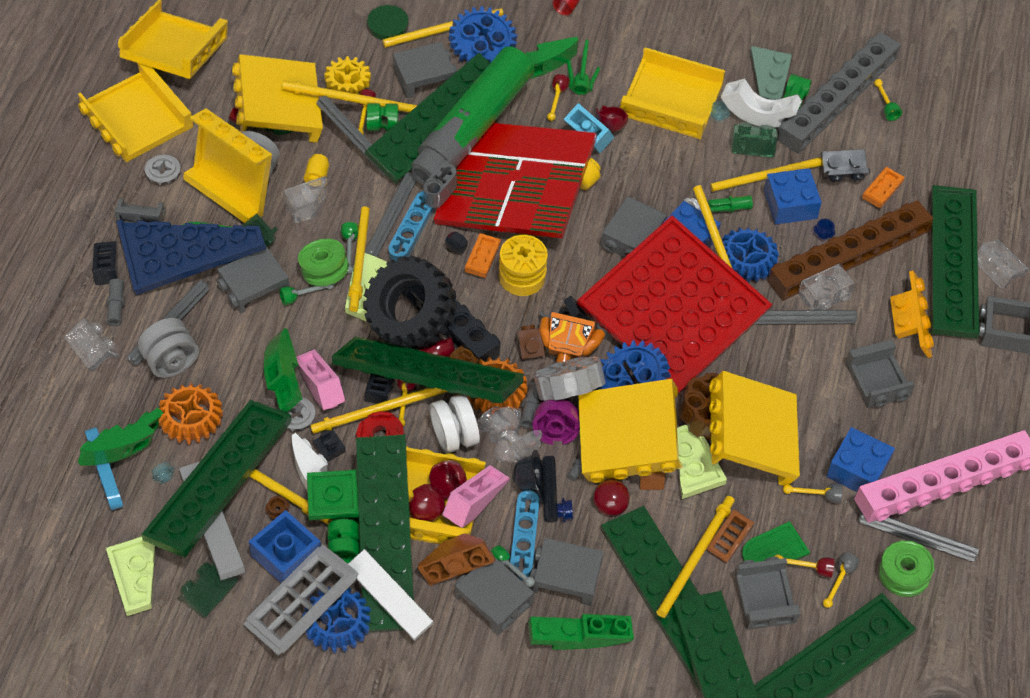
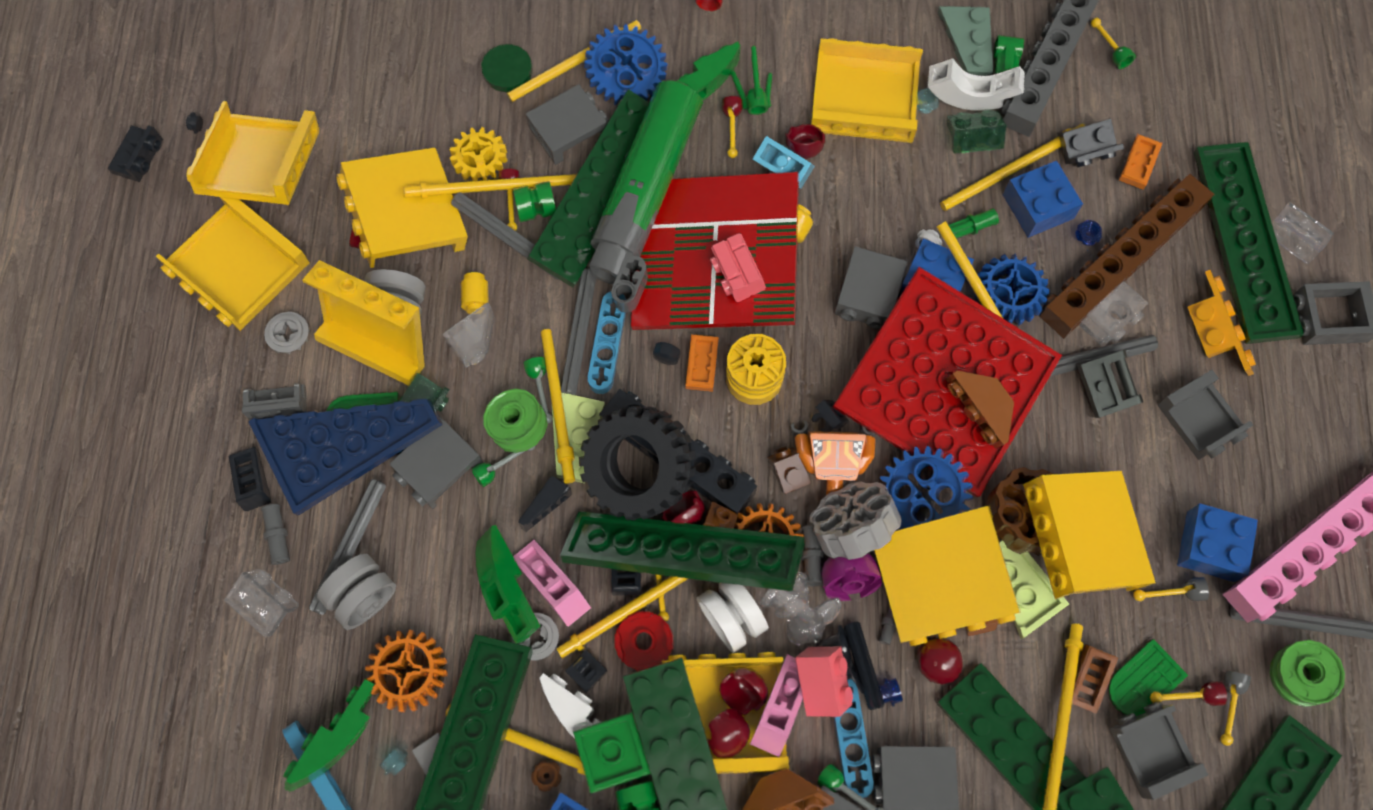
camera: 10 degrees left, 15 degrees up
(80, 24) = (136, 153): none -> black bracket
(131, 12) = (194, 123): none -> black piece
(331, 323) = (547, 500): none -> black slope
(512, 481) = (824, 681): none -> coral brick
(528, 188) = (738, 268): none -> coral brick
(697, 320) = (985, 403): none -> dark orange slope
(800, 335) = (1102, 386): none -> pearl dark grey plate

